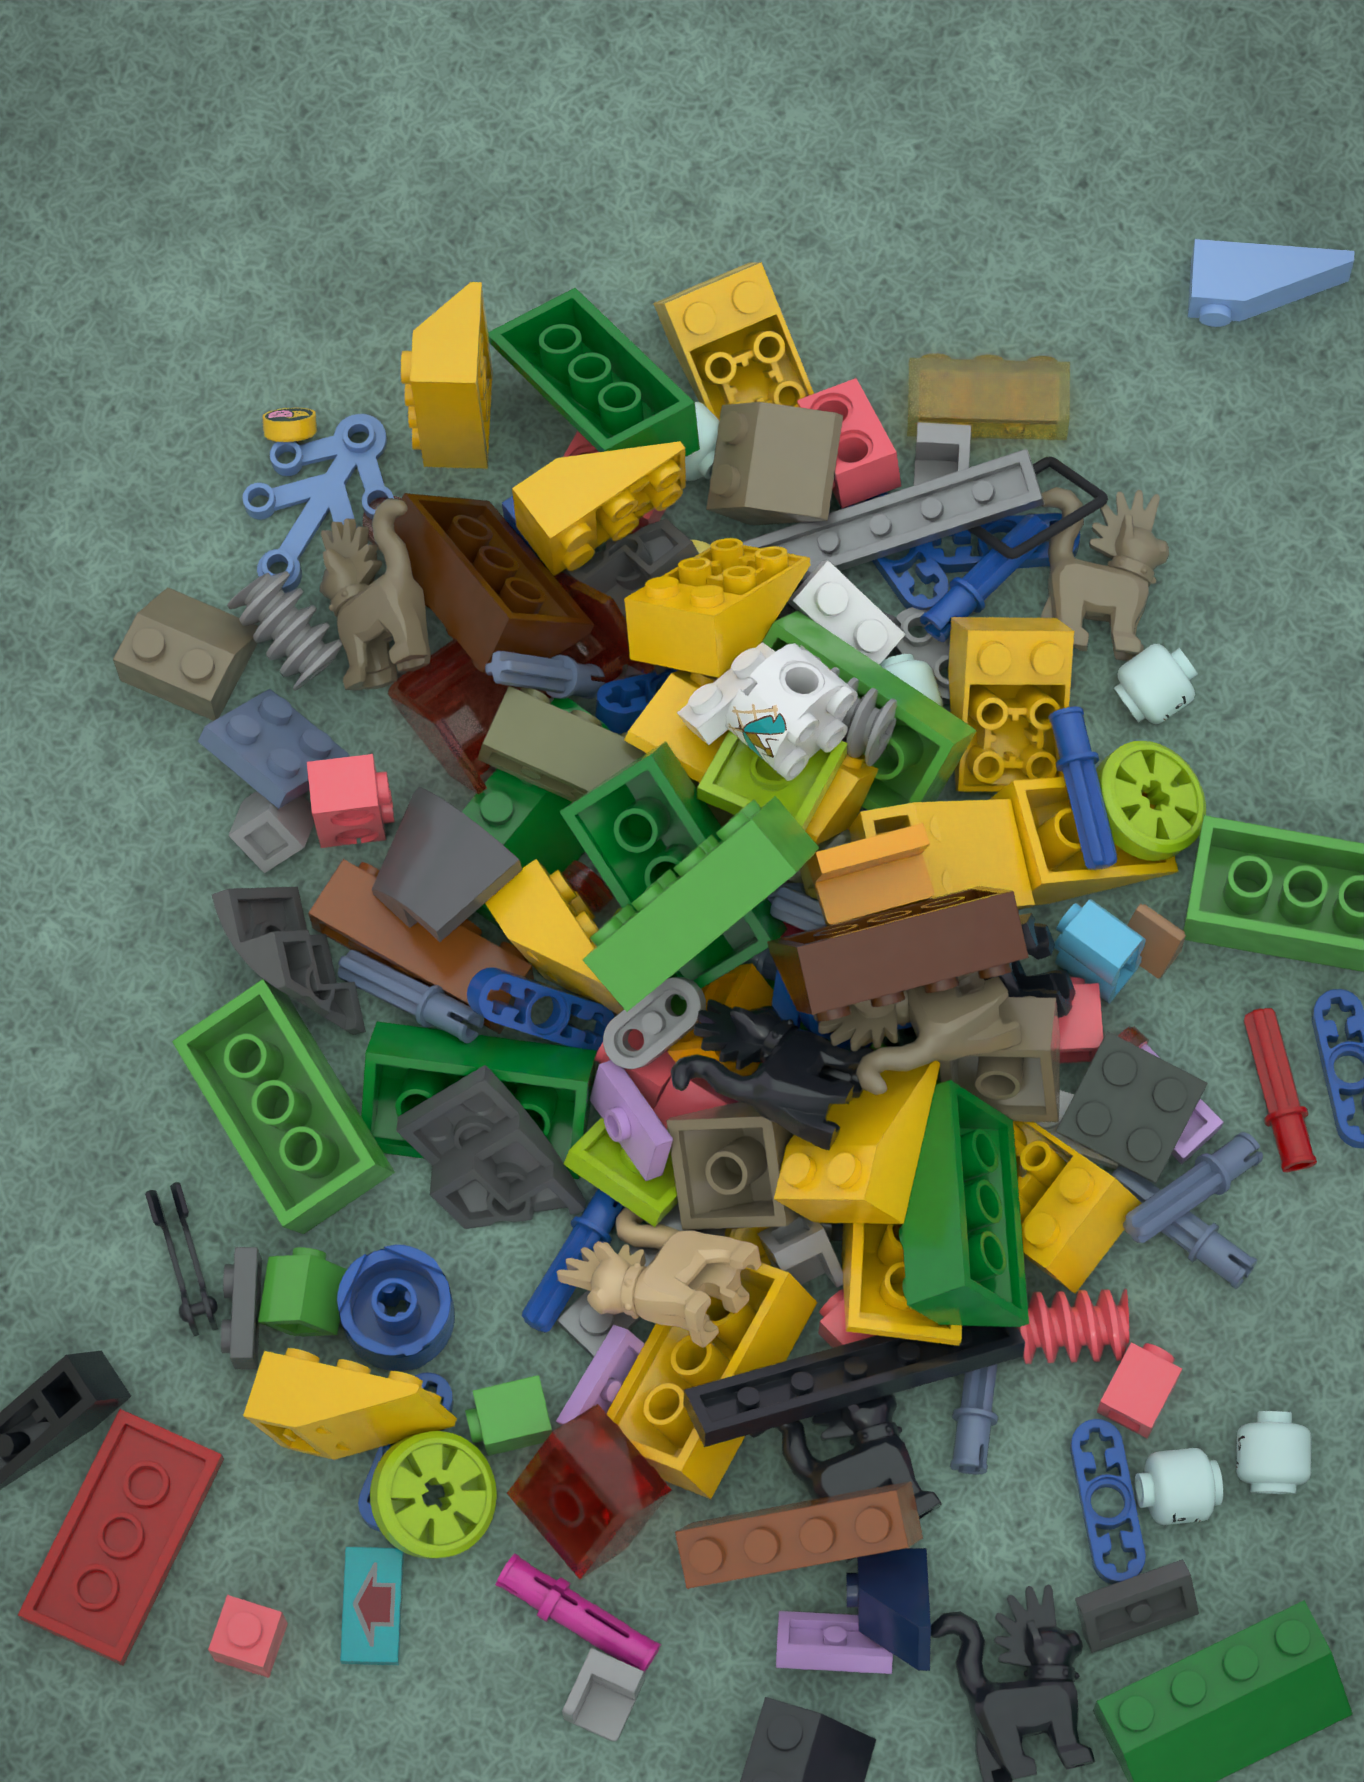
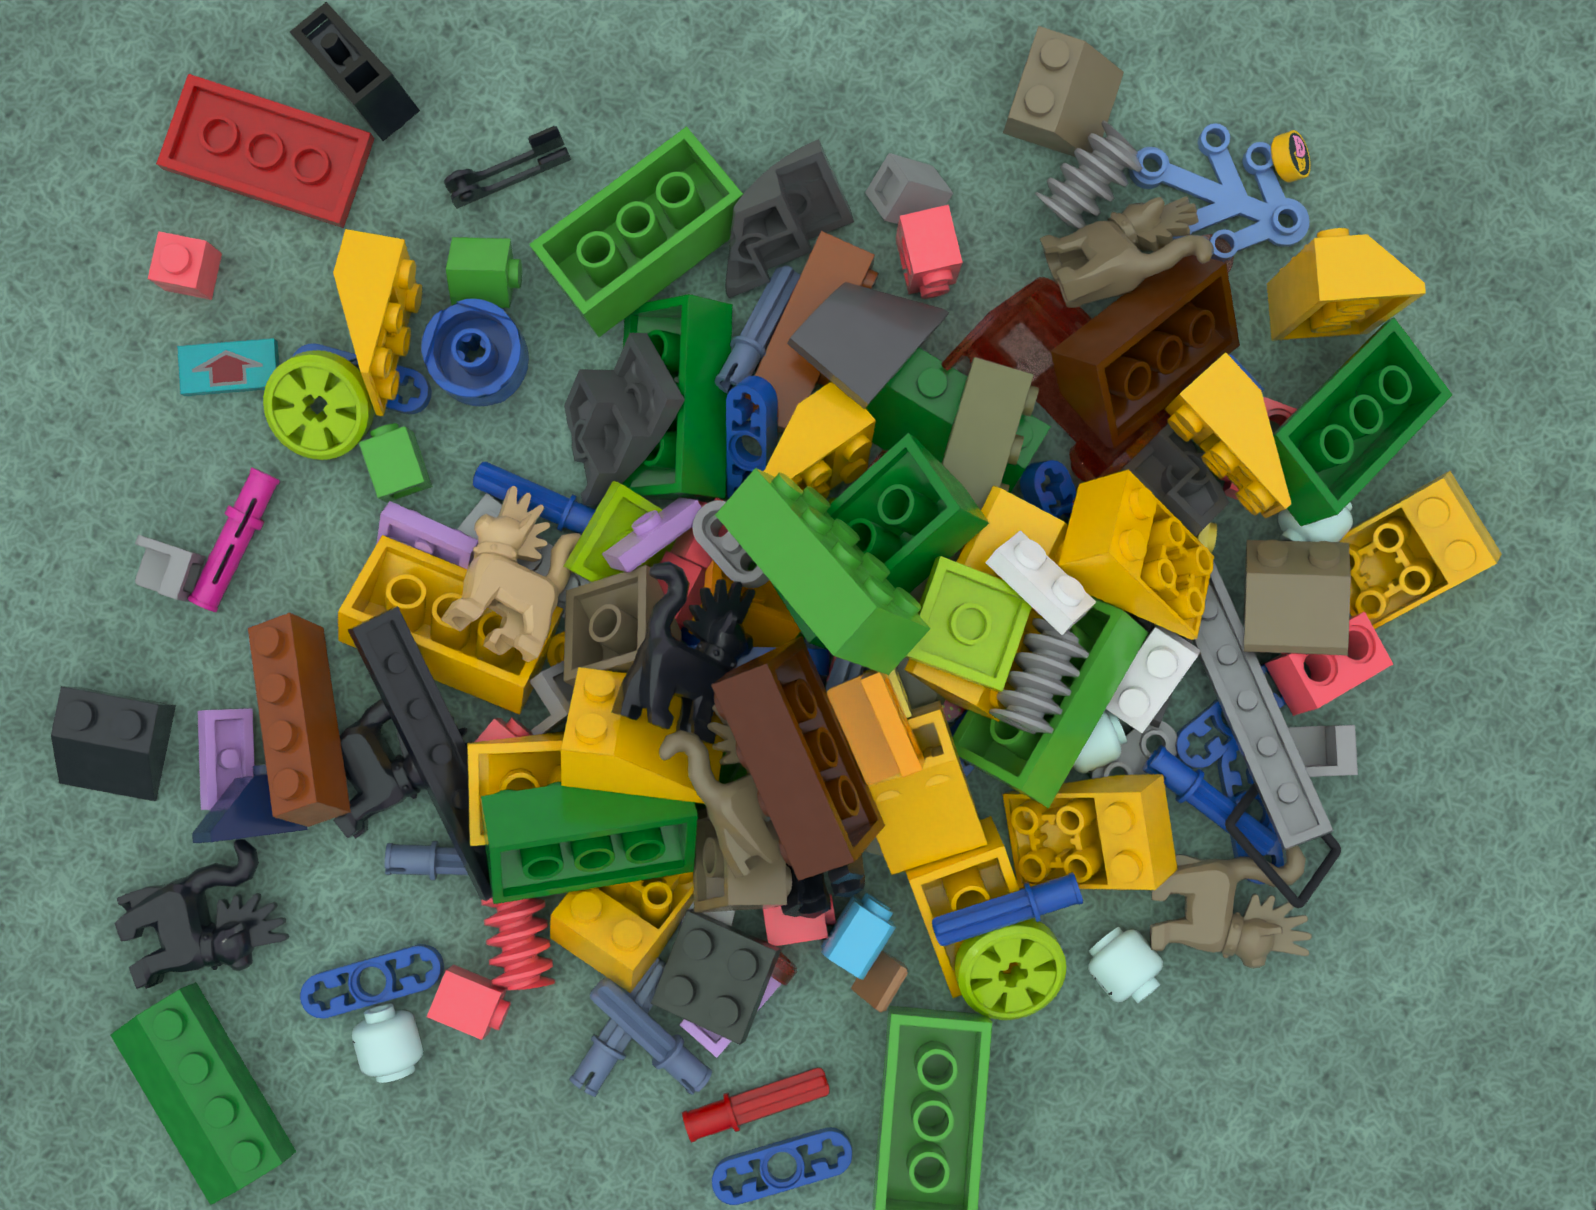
camera: 85 degrees right, 15 degrees up
(243, 1285) = (489, 221): dark grey plate -> none
(269, 746) = (976, 178): sand blue plate -> none
(556, 676) = (1060, 421): sand blue axle -> none
(589, 1491) = (323, 537): clear red brick -> none
(791, 710) = (1016, 634): white brick -> none
(991, 395) = (1393, 789): clear yellow brick -> none
(1137, 1605) = (288, 1029): dark grey plate -> none
(1248, 278) = (1541, 1019): light blue slope -> none
(1273, 1453) = (423, 1123): light aqua head -> none

